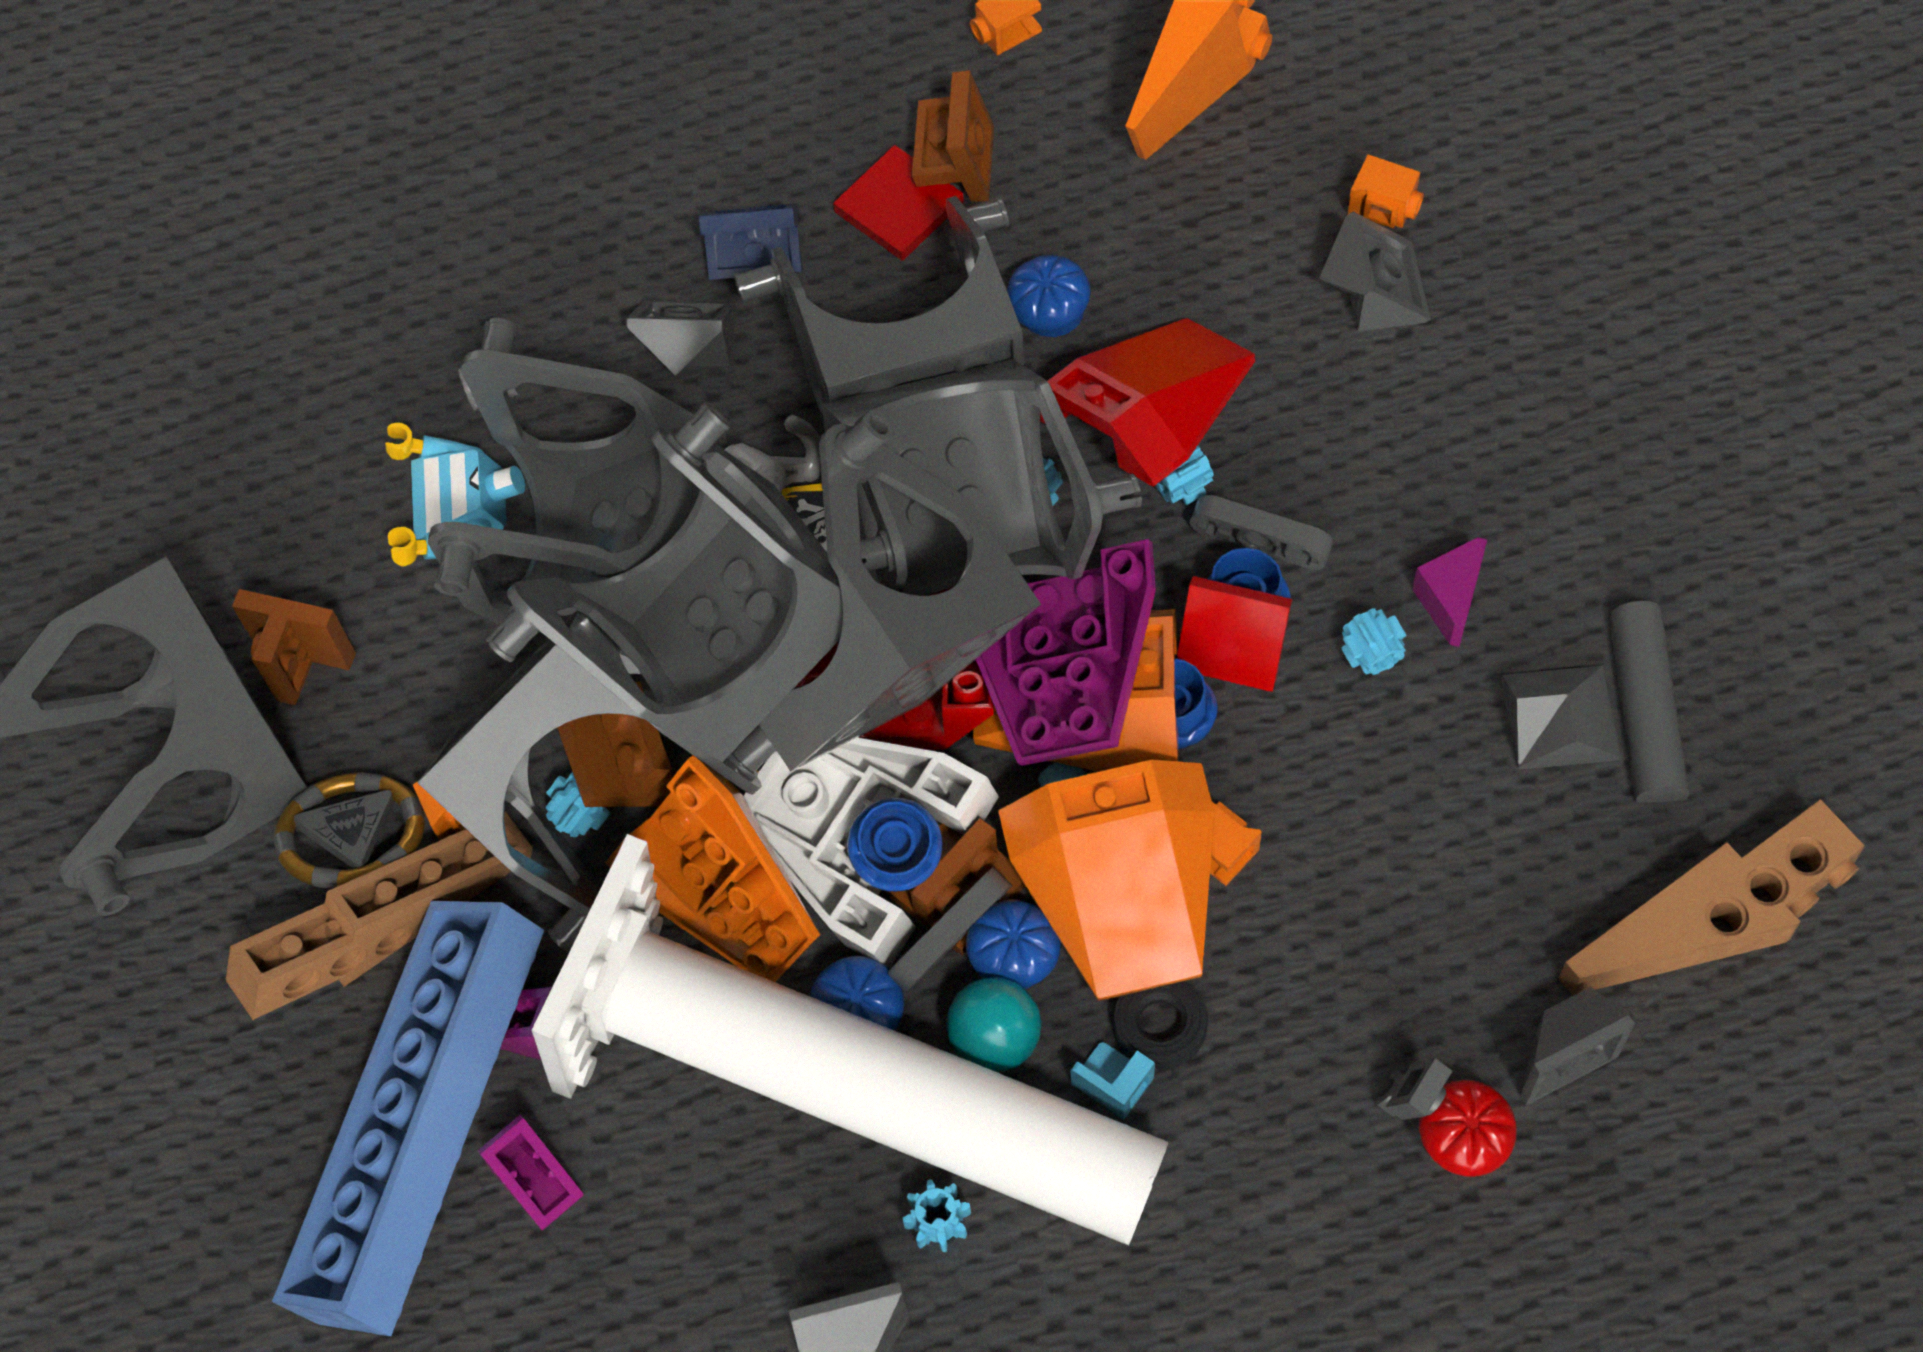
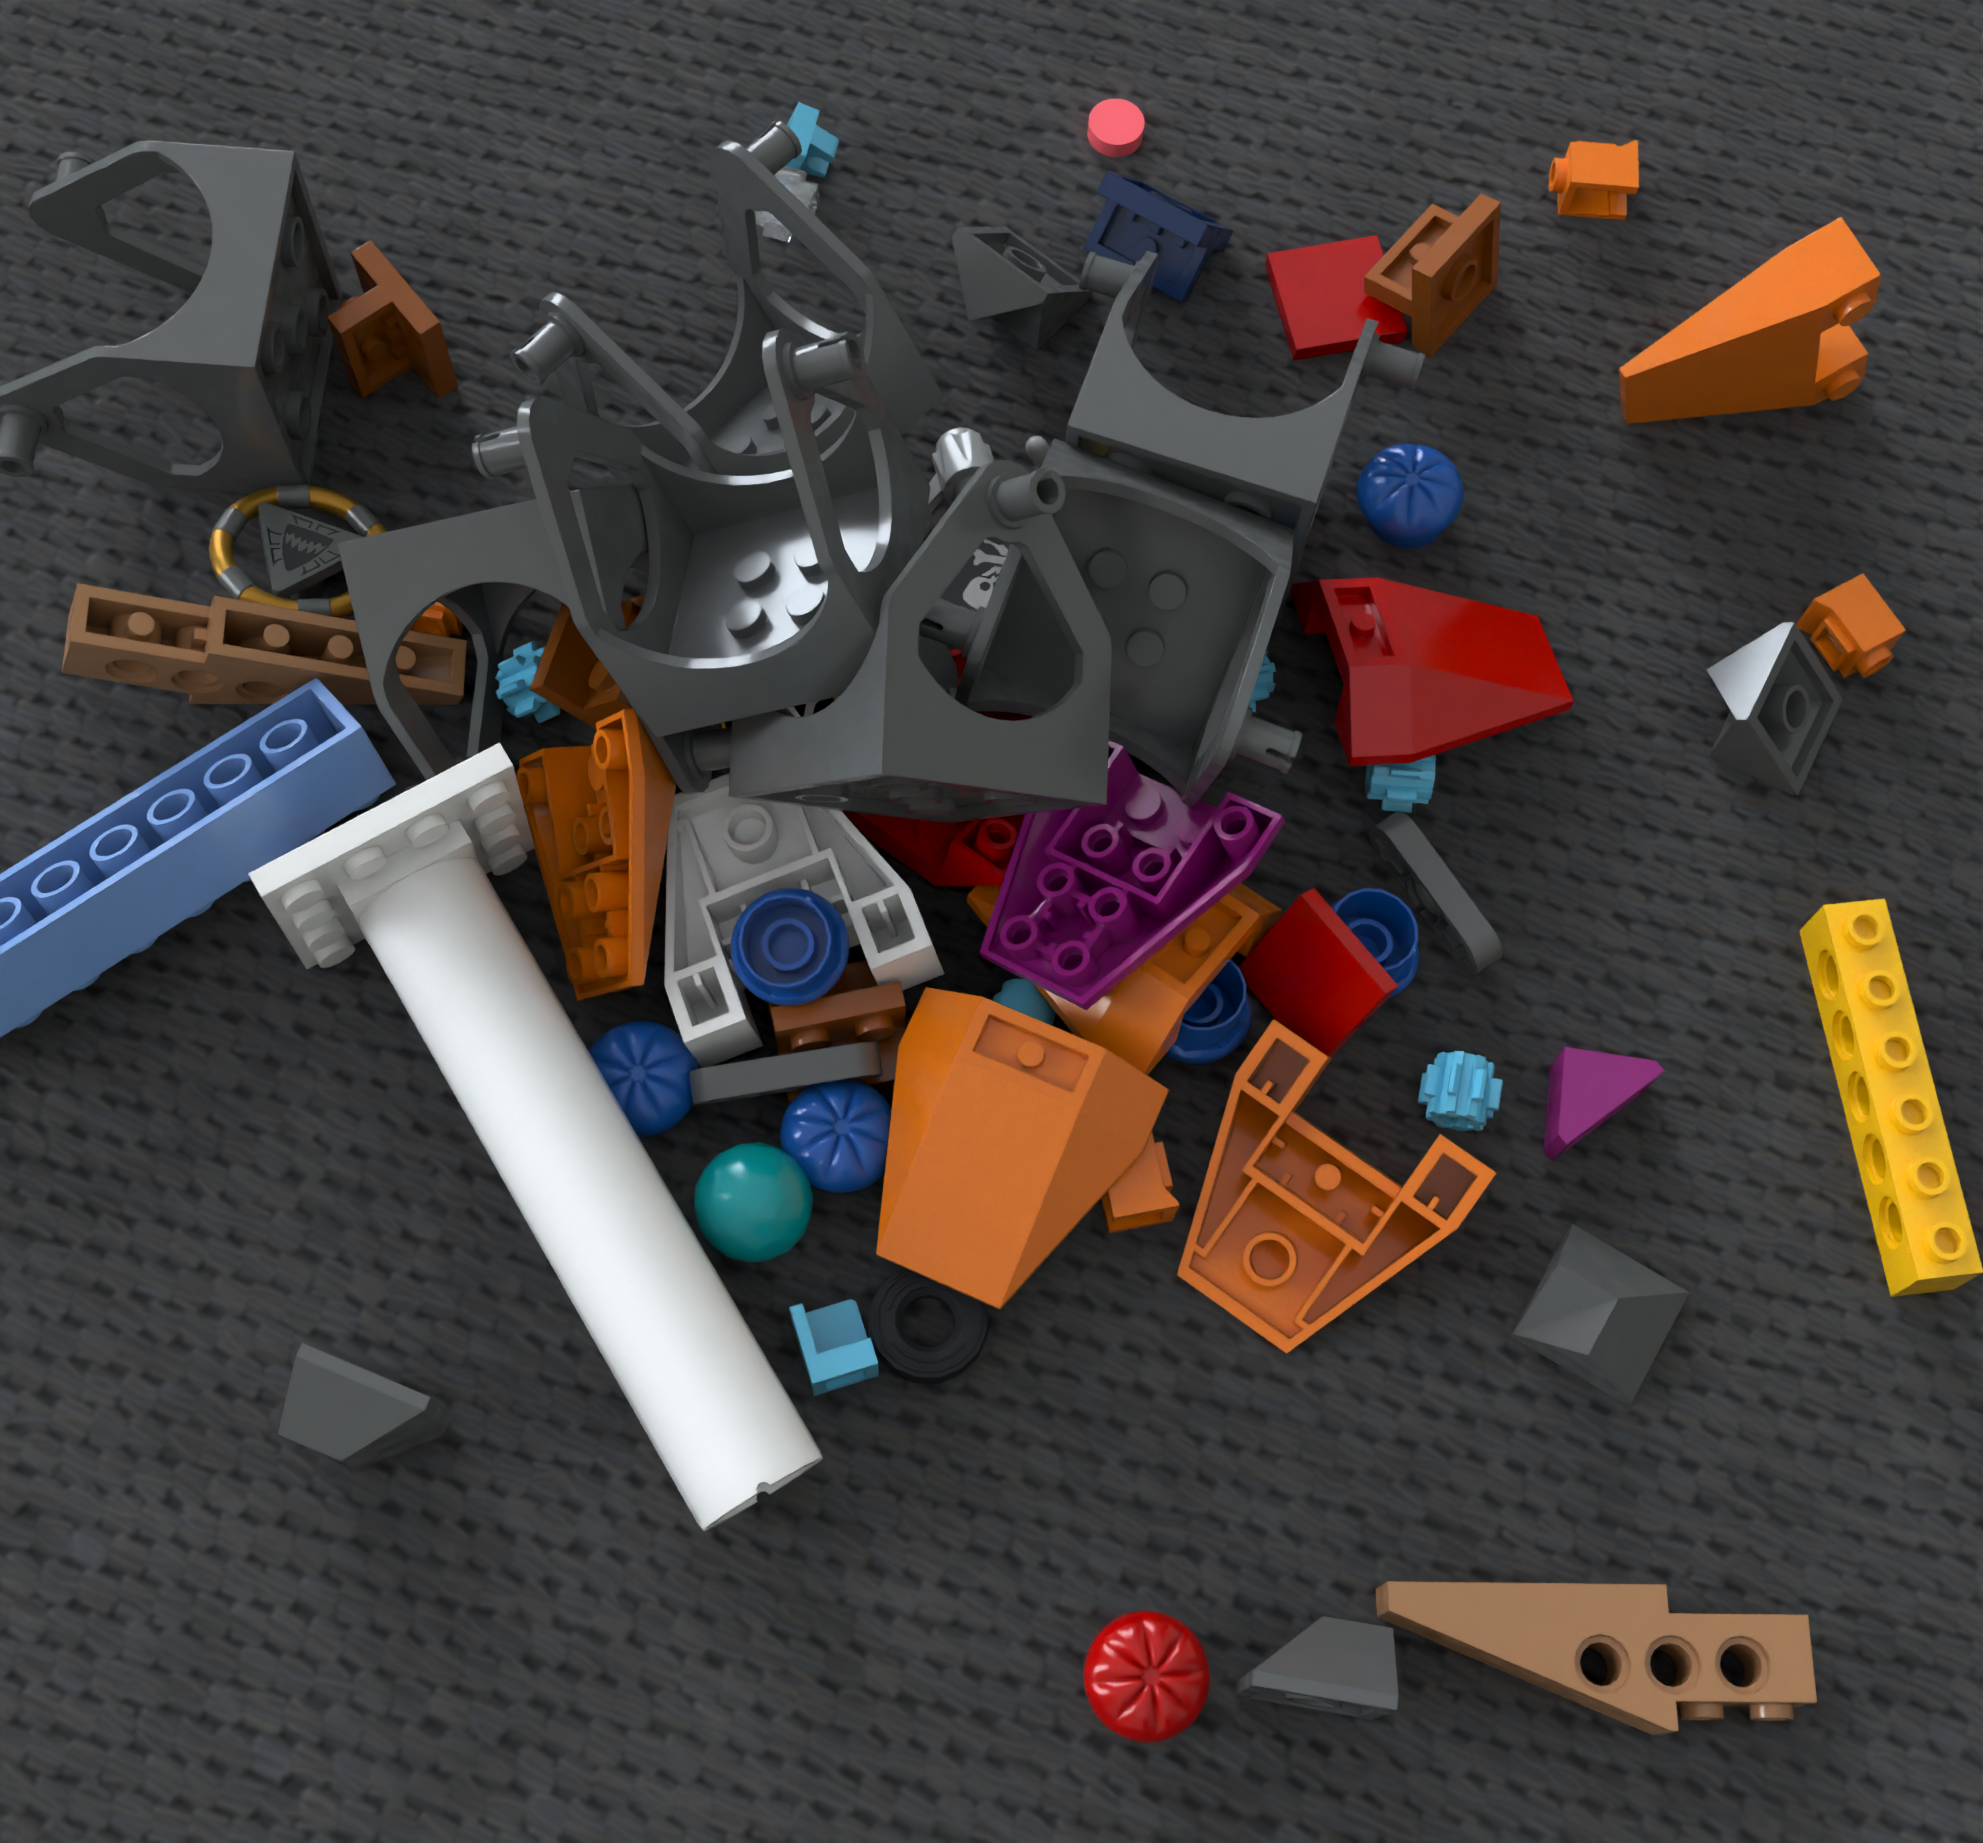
camera: 25 degrees right, 5 degrees up
(448, 486) = (663, 291): torso -> none
(462, 333) = (816, 143): none -> medium azure tile
(530, 1172) = (201, 1013): magenta slope -> none
(666, 187) = (1115, 127): none -> coral tile
(940, 1230) = (528, 1347): medium azure gear -> none
(1337, 792) = (1298, 1221): none -> orange wedge
(1417, 1091) = (1120, 1597): dark grey plate -> none
(1629, 463) = (1889, 1099): none -> yellow brick
(1648, 703) = (1706, 1369): dark grey brick -> none

